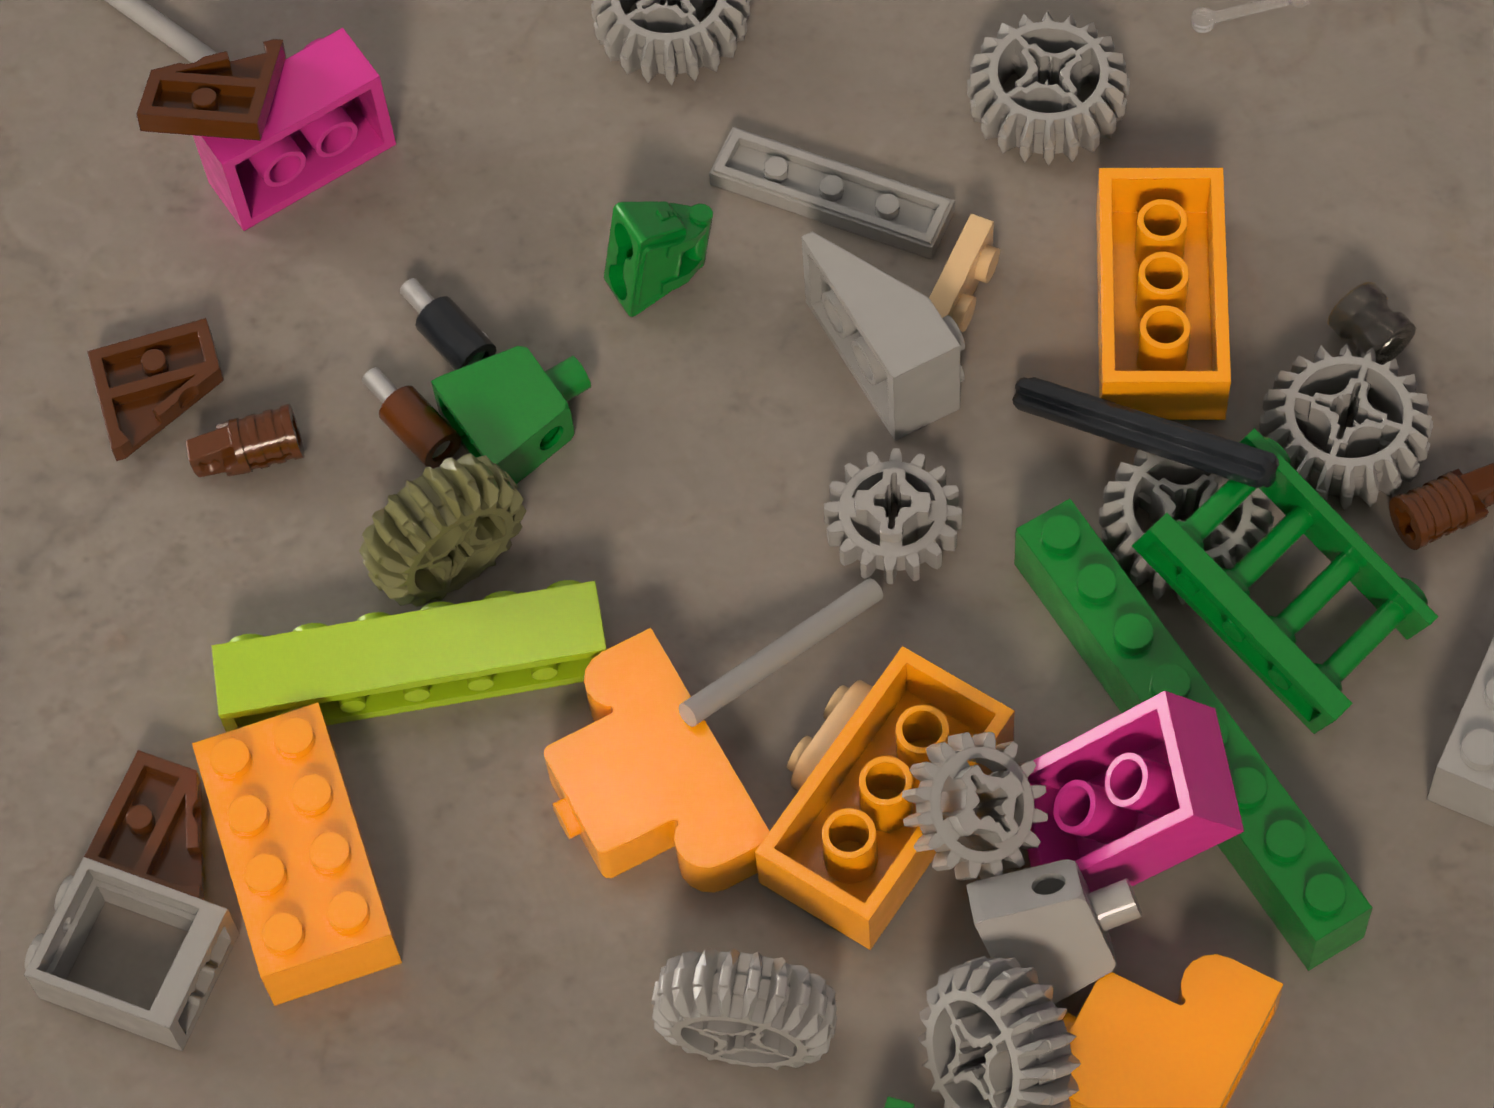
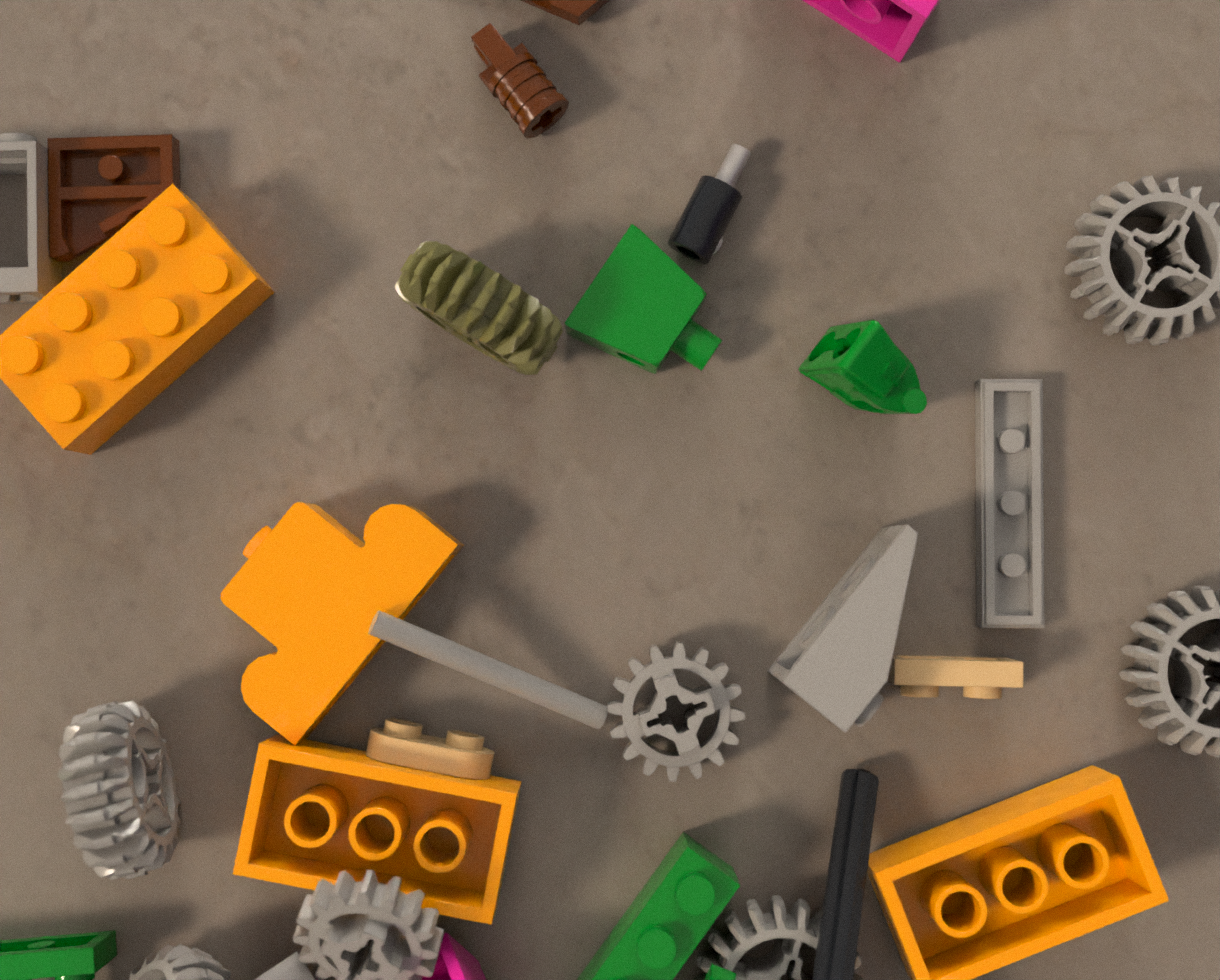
camera: 60 degrees right, 25 degrees up
(413, 420) = (603, 219): reddish brown piece -> none
(413, 657) = (355, 334): lime brick -> none

